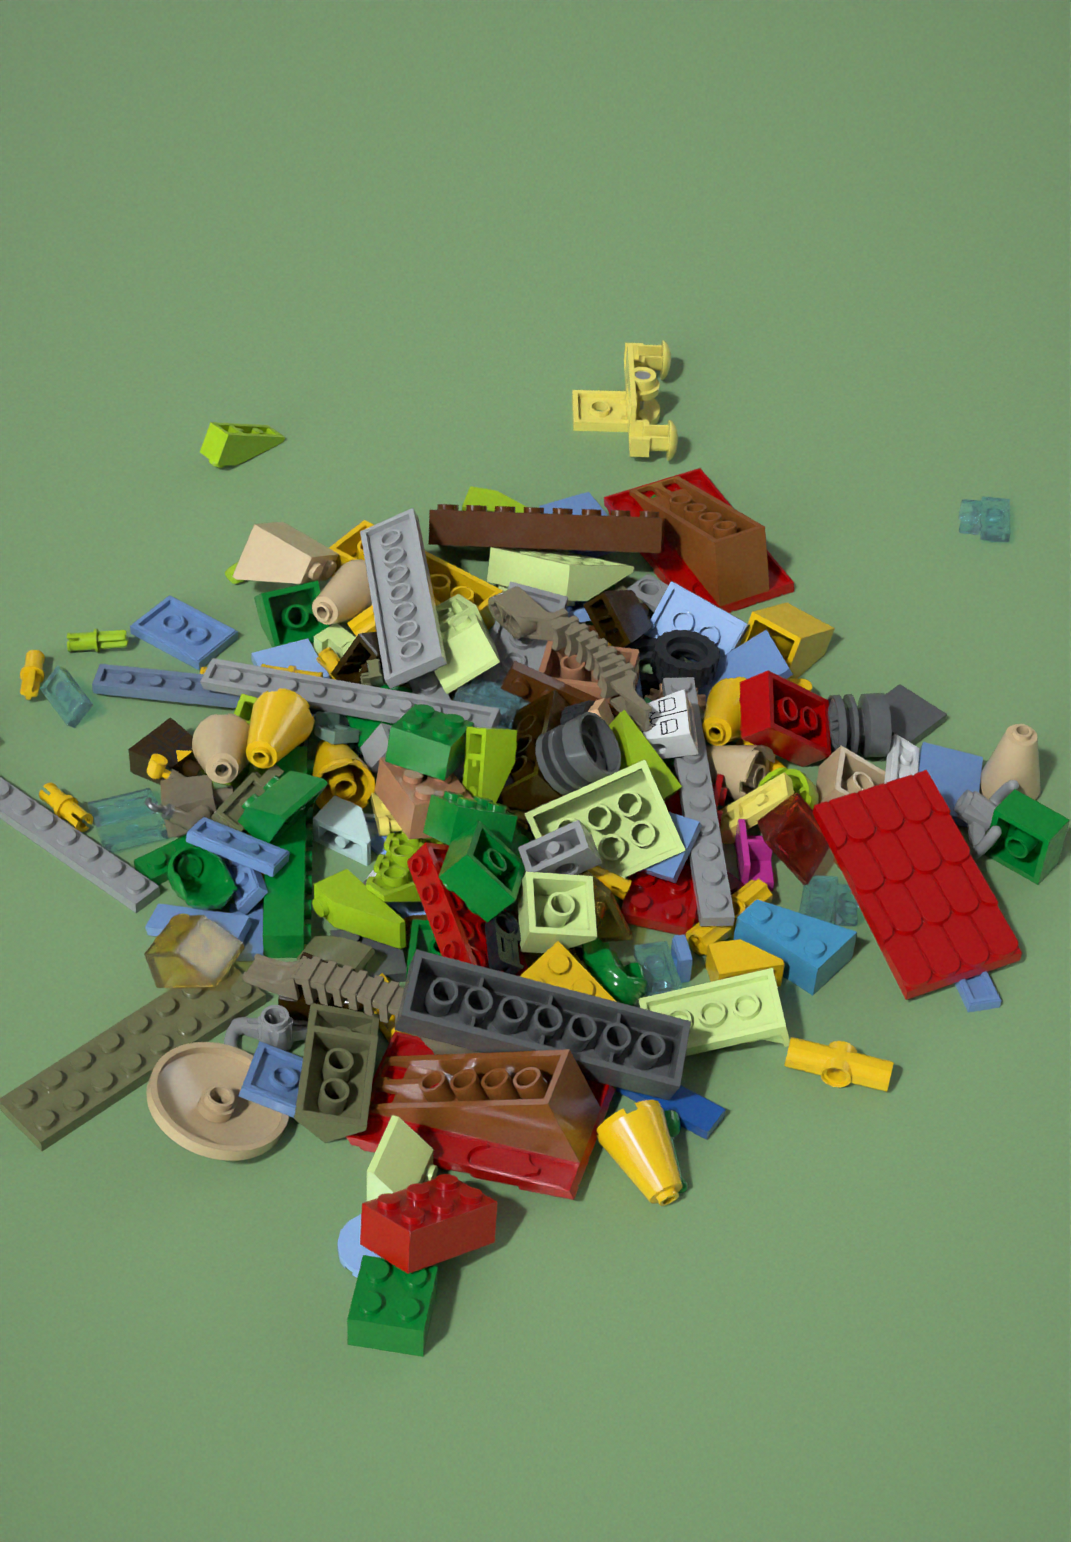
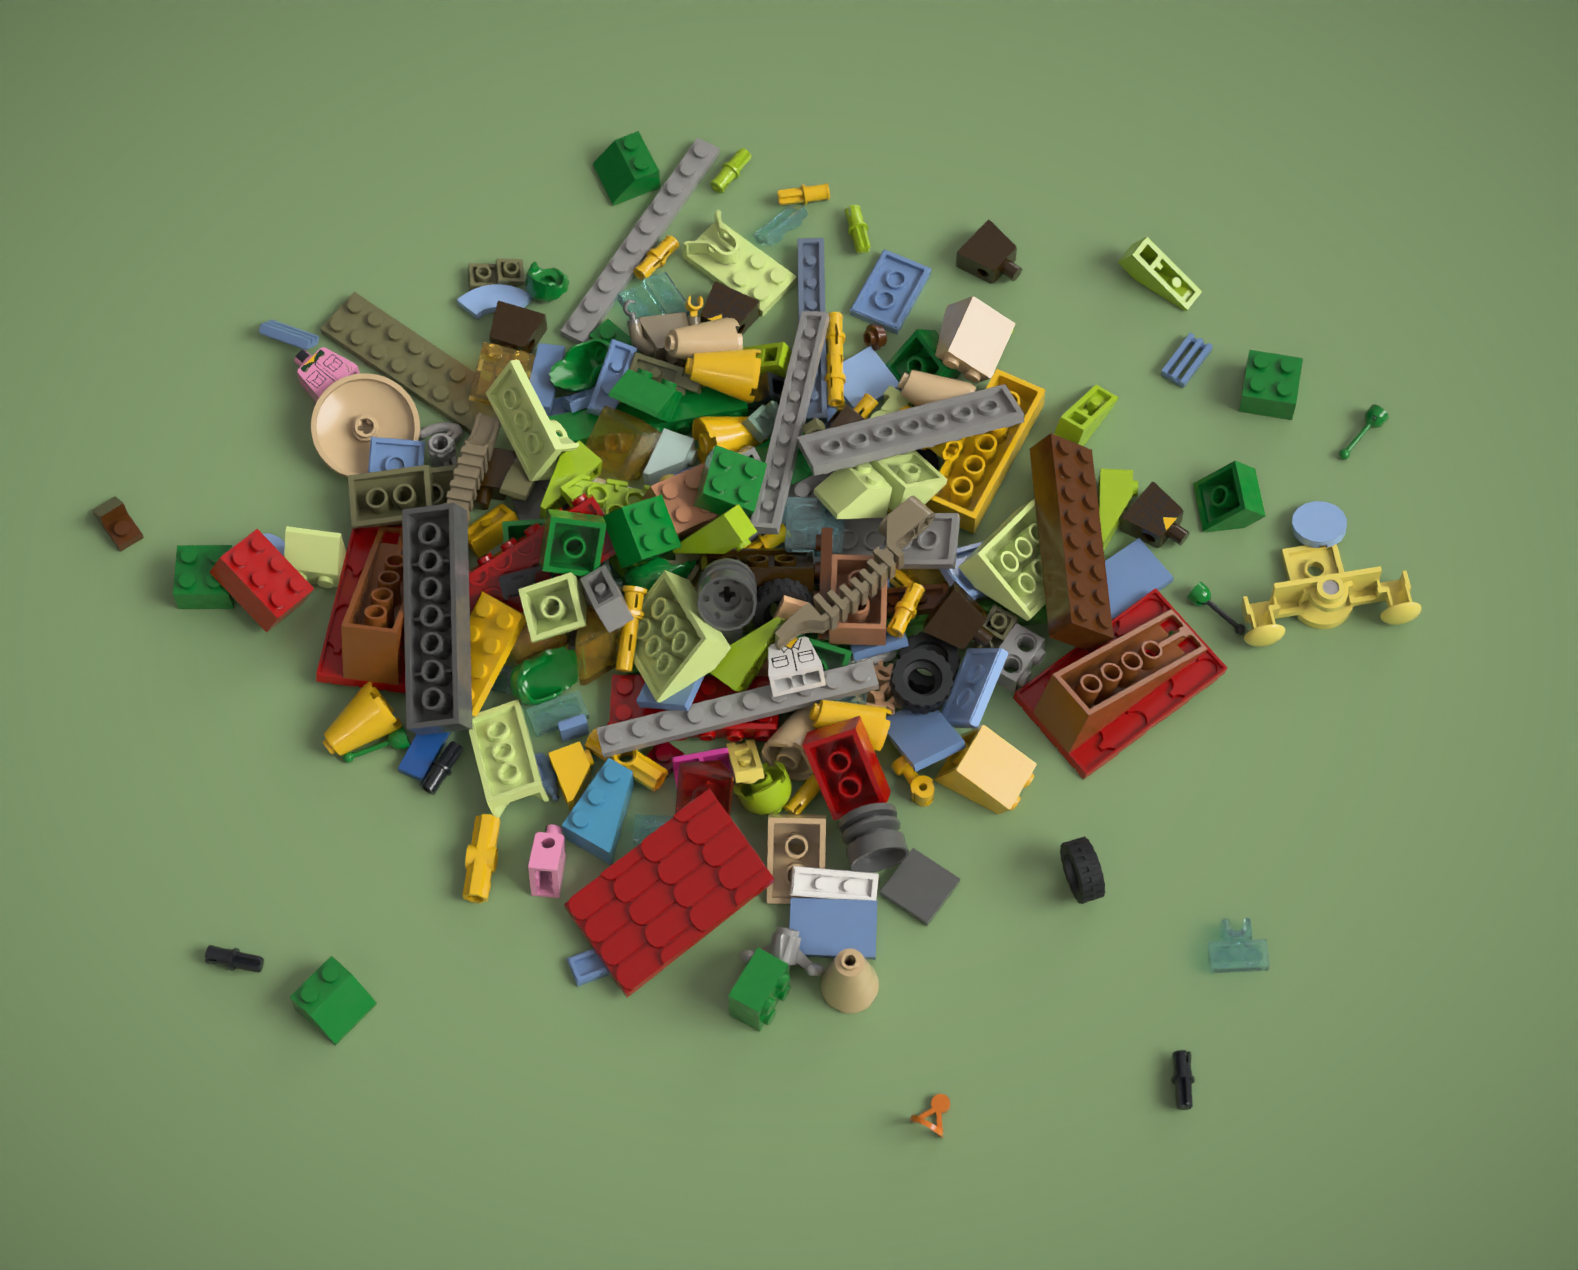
camera: 85 degrees right, 20 degrees up
(28, 958) = (503, 272): none -> olive slope
(39, 1176) = (288, 334): none -> medium blue tile
(62, 964) = (485, 298): none -> light blue tile
(66, 904) = (545, 284): none -> green hair
(95, 744) = (738, 264): none -> yellowish green plate
(118, 943) = (517, 327): none -> dark brown torso
(120, 1143) = (322, 370): none -> bright pink torso
(171, 549) = (989, 255): none -> dark brown torso
(238, 640) = (875, 336): none -> reddish brown plate
(268, 1414) = (118, 523): none -> reddish brown slope
(282, 915) = (527, 423): none -> yellowish green plate
(325, 849) = (622, 443): none -> clear yellow slope
(346, 443) = (1197, 344): none -> medium blue tile
(382, 508) = (1085, 415): none -> lime slope
(395, 394) = (1270, 384): none -> green brick
(447, 345) = (1374, 418): none -> green hinge
(512, 441) = (1229, 498): none -> green slope
(522, 484) = (1154, 518): none -> dark brown torso
(553, 394) = (1319, 524): none -> light blue tile
(611, 478) = (1201, 596): none -> hinge
(713, 1089) = (441, 768): none -> black axle
(855, 995) = (547, 855): none -> bright pink torso
(900, 571) = (1082, 870): none -> black tyre
(953, 1332) = (233, 959): none -> black axle
(1012, 1233) = (332, 1000): none -> green slope

